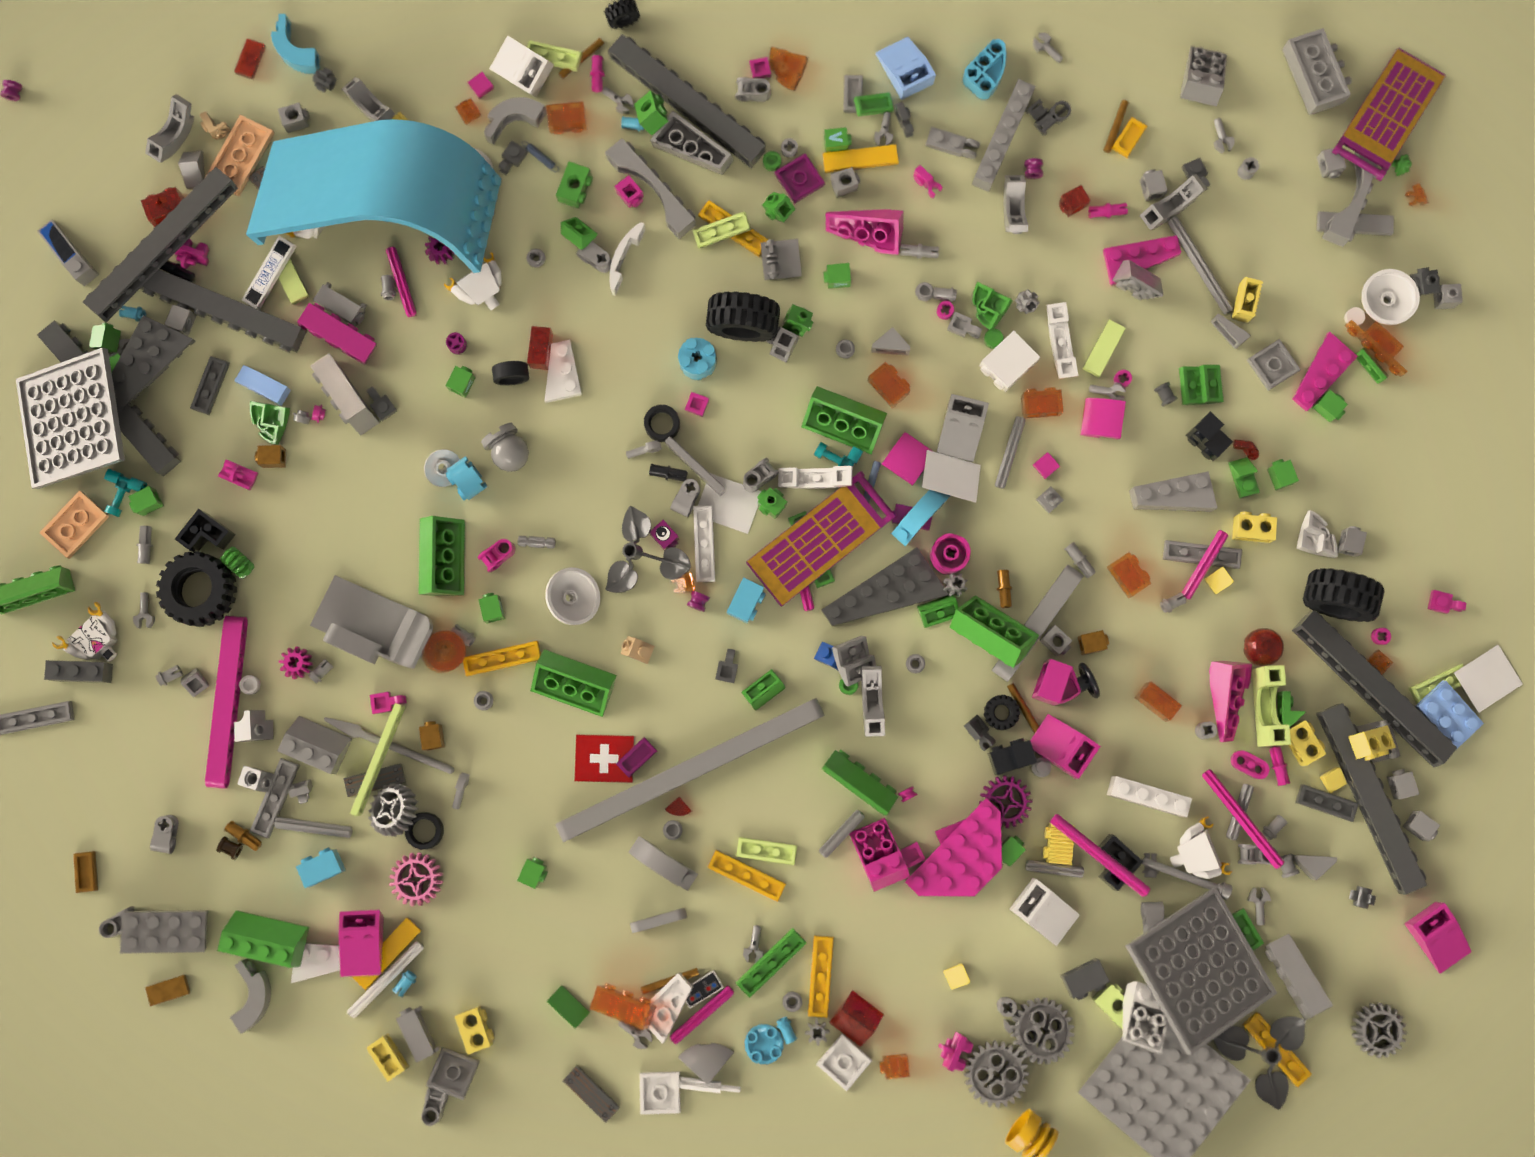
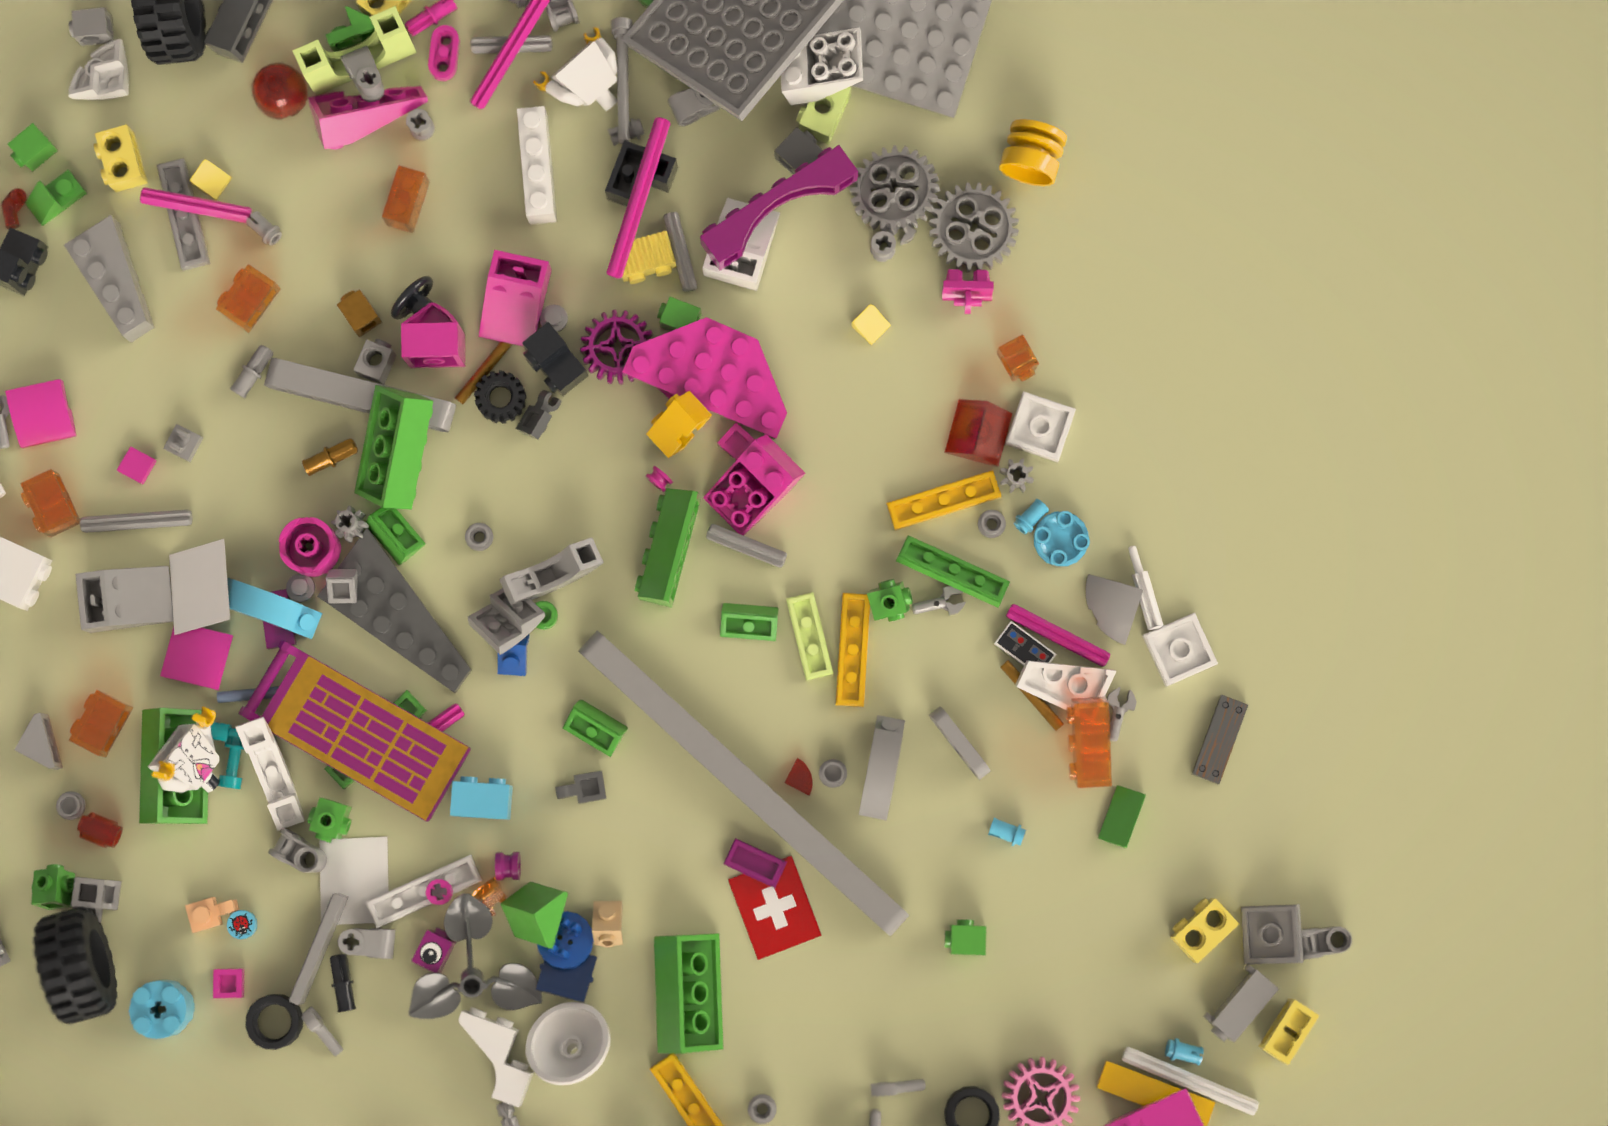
camera: 110 degrees left, 0 degrees up
(589, 927) = (1007, 832): none -> medium azure pin
(594, 552) = (496, 1041): none -> white arch
(617, 612) = (567, 982): none -> dark blue piece
(644, 625) = (567, 956): none -> blue plate
(661, 607) = (535, 913): none -> bright green slope
(702, 557) = (434, 899): none -> dark pink bush
(729, 425) = (242, 924): none -> tile
(744, 406) = (207, 913): none -> light nougat plate
(764, 907) = (882, 607): none -> bright green brick
(791, 815) = (749, 621): none -> bright green slope
(822, 360) = (99, 830): none -> clear red brick
(844, 430) = (188, 757): none -> white torso
(916, 565) = (342, 585): none -> light grey slope
(926, 538) = (300, 587): none -> light grey plate
(937, 819) = (675, 425): none -> yellow brick
(1067, 986) = (825, 176): none -> magenta arch
(1256, 706) = (363, 72): none -> light grey piece

